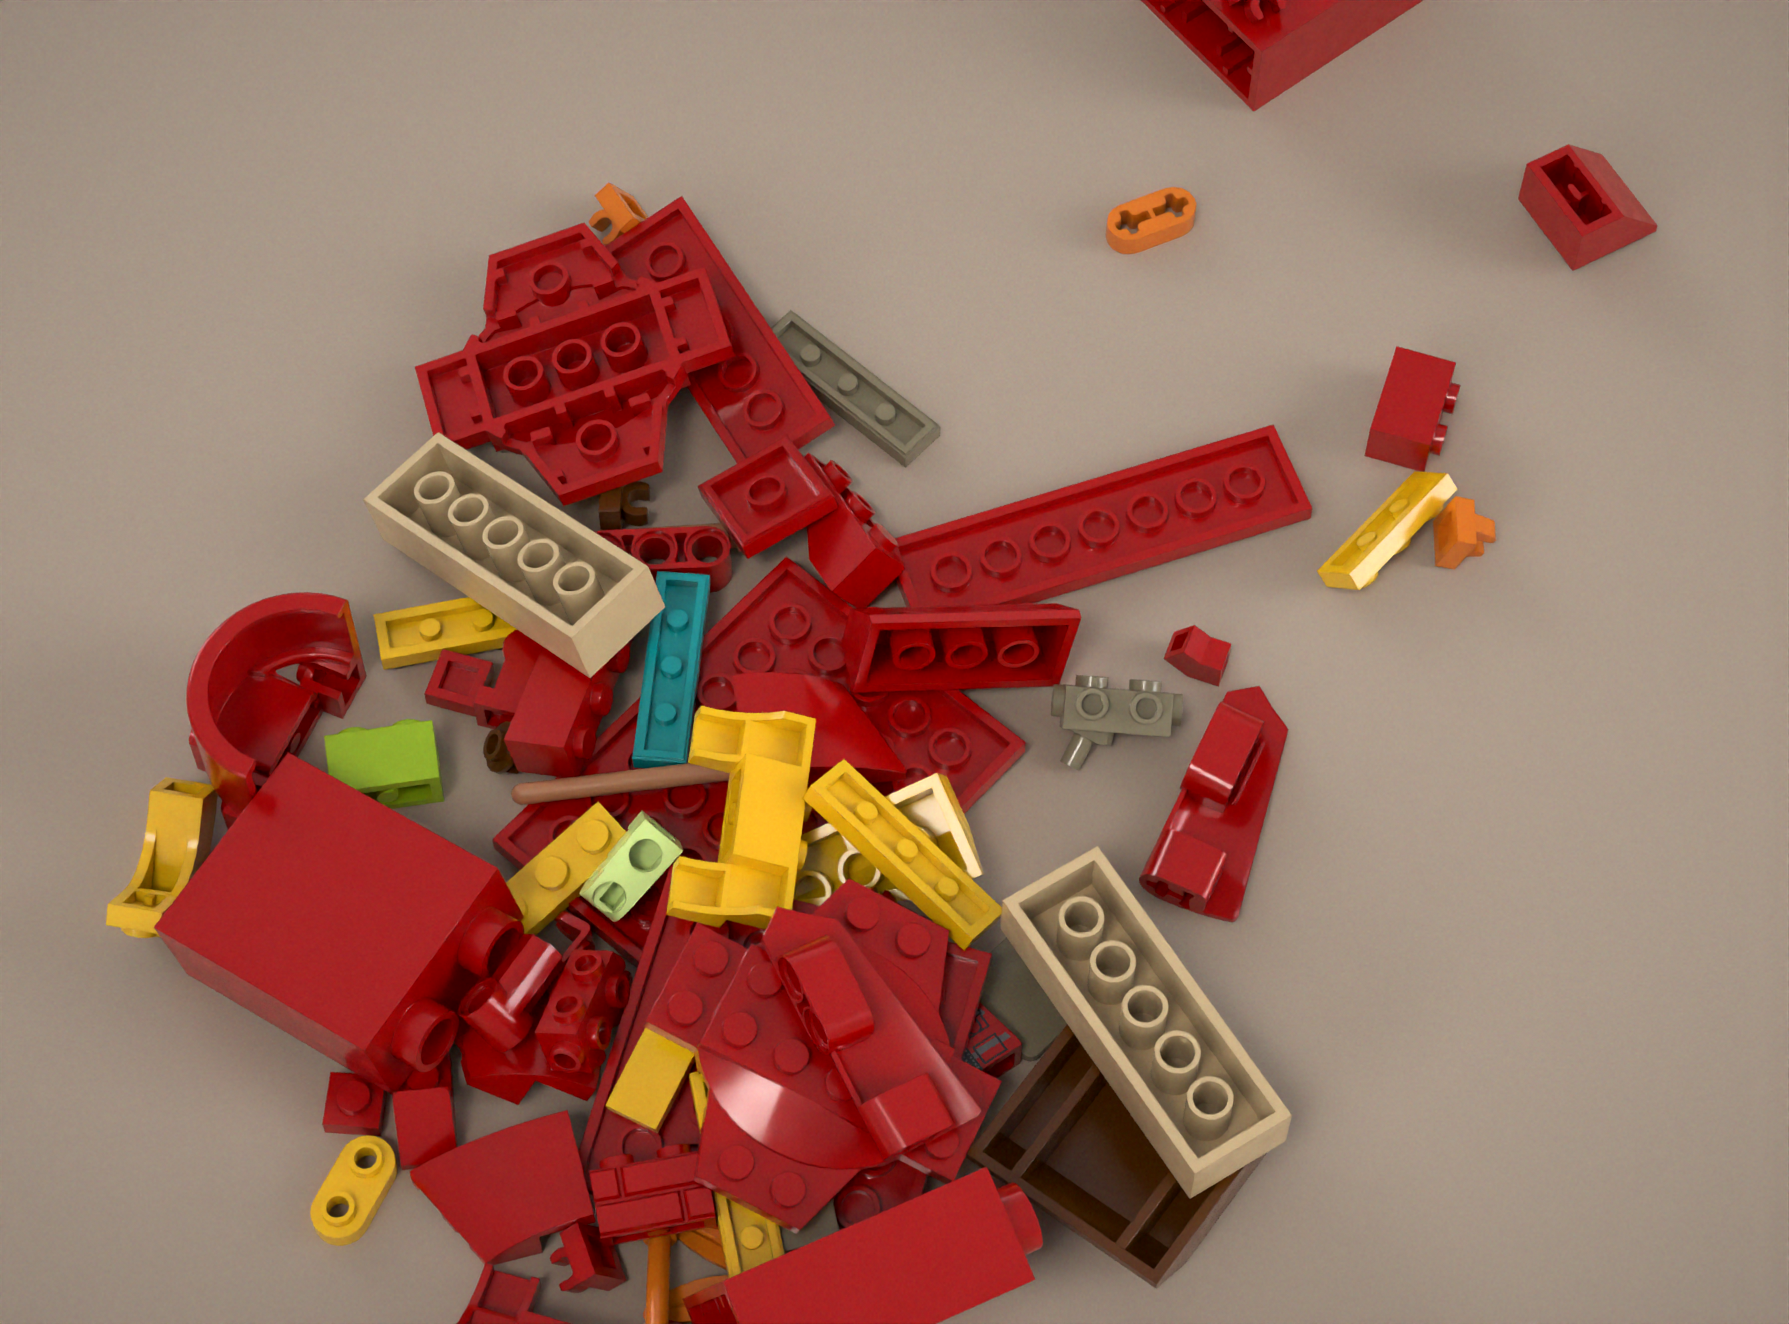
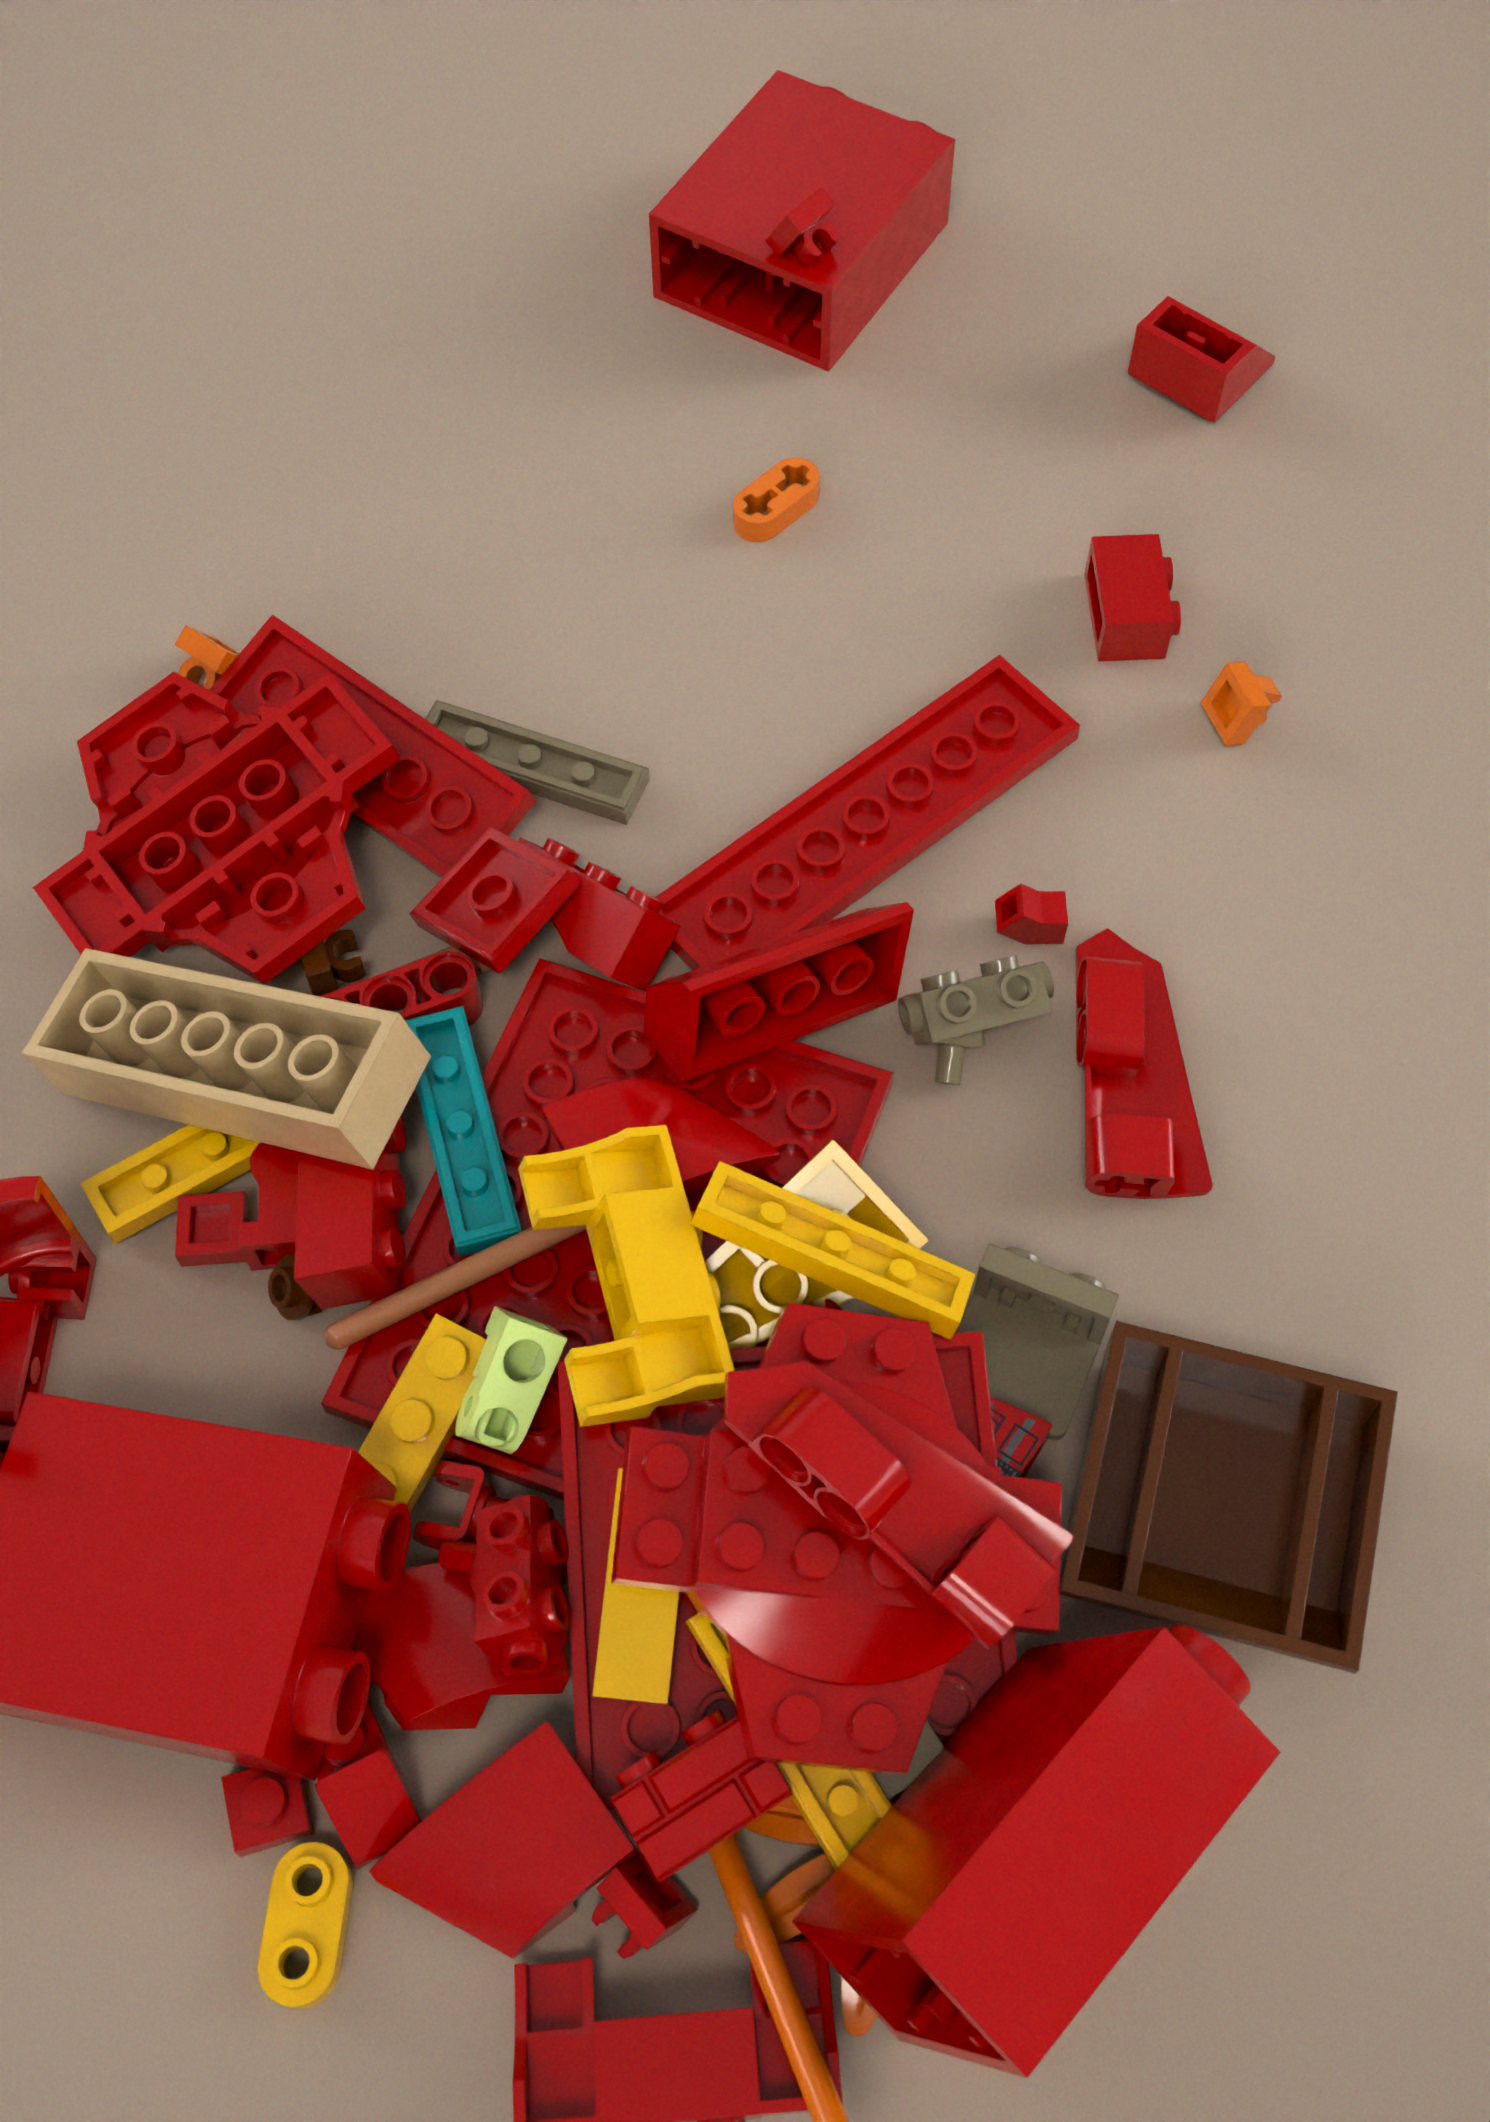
camera: 20 degrees left, 0 degrees up
(388, 763) = (158, 1357): lime brick -> none
(502, 1003) = (416, 1616): red piece -> none
(1145, 1022) = (1210, 1352): tan brick -> none
(1387, 530) = (1165, 724): yellow plate -> none

